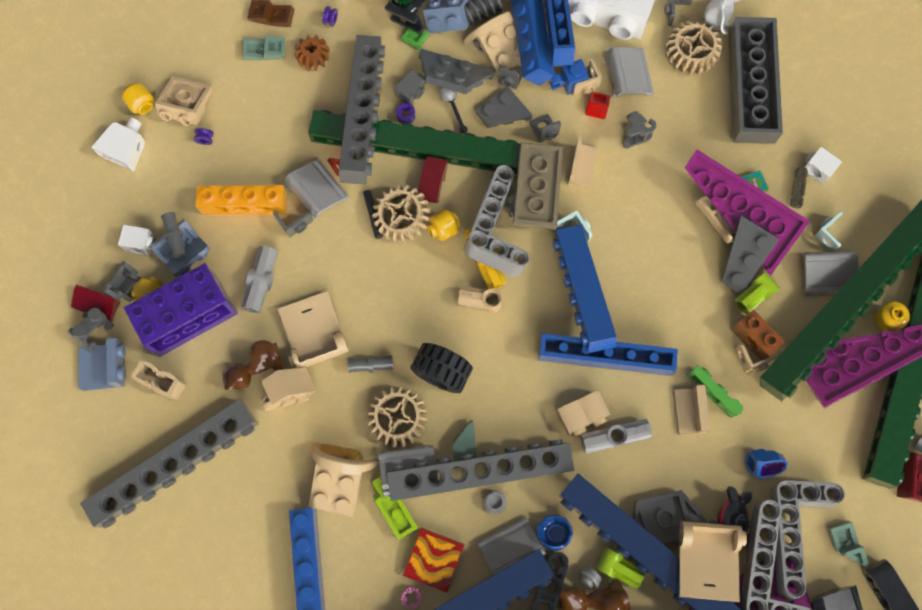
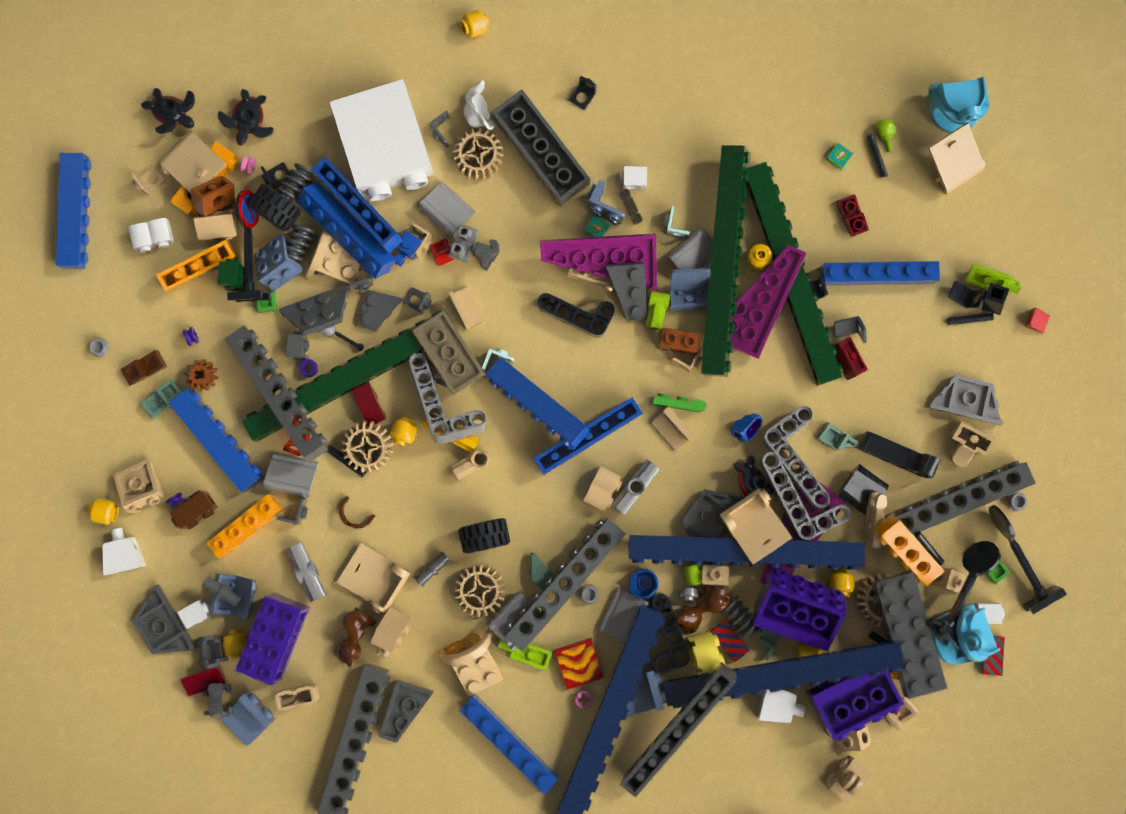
camera: 40 degrees left, 10 degrees up
(101, 227) = (161, 625): none -> dark grey wing
(210, 153) = (197, 507): none -> reddish brown brick
(240, 469) = (402, 709): none -> dark grey wing
(279, 113) = (215, 440): none -> blue brick
(332, 253) = (343, 518): none -> reddish brown helmet
(621, 107) = (463, 243): none -> light grey hips
(632, 580) = (715, 575): none -> tan bracket
(679, 238) = (574, 311): none -> black beam
(773, 167) = (598, 208): none -> sand blue bracket
(804, 294) = (689, 289): none -> sand blue bracket
(833, 62) = (585, 86): none -> black bracket

